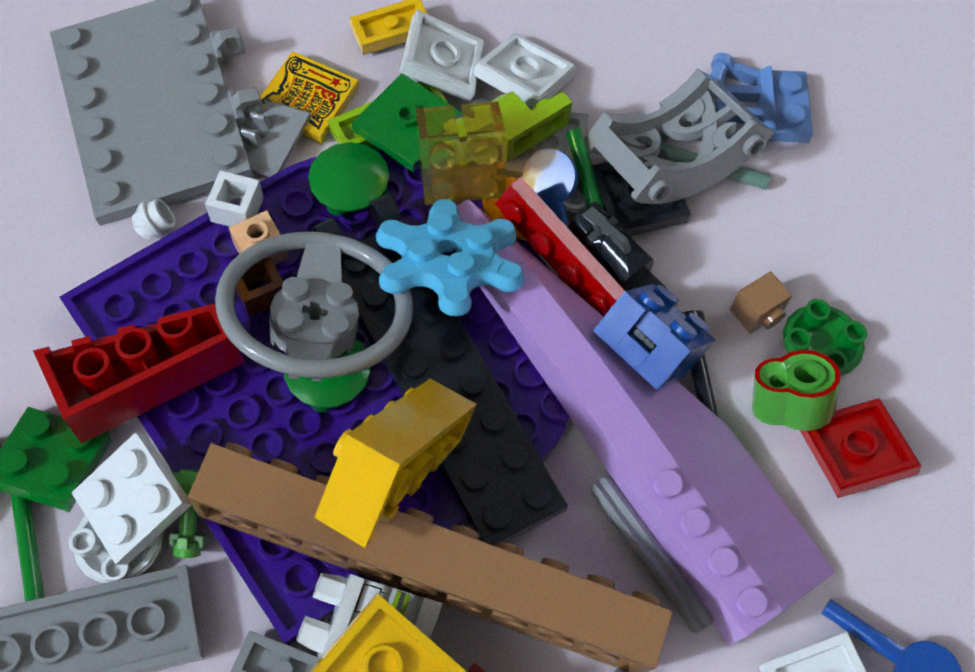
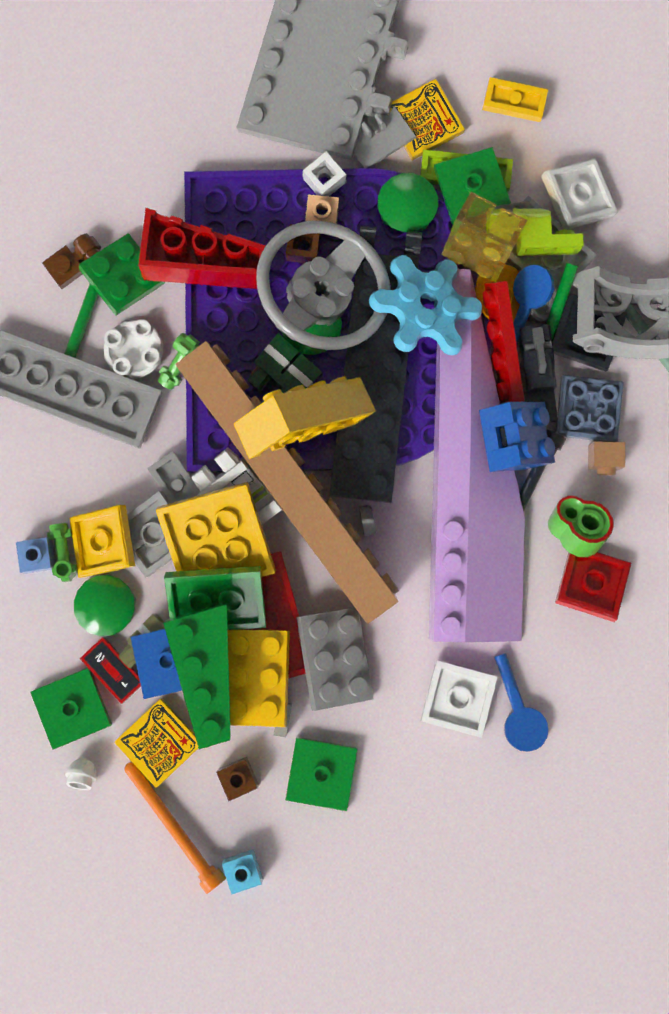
camera: 40 degrees right, 20 degrees up
(131, 498) = (151, 333): white plate -> none
(153, 219) = (271, 151): white plate -> none
(317, 428) = (283, 367): none -> dark green hips
(441, 56) = (530, 147): white plate -> none
(547, 549) = (367, 520): none -> light grey tile
(651, 554) = (423, 544): light grey axle -> none
(701, 268) = (589, 408): none -> sand blue tile
(828, 332) = (630, 504): green dish -> none

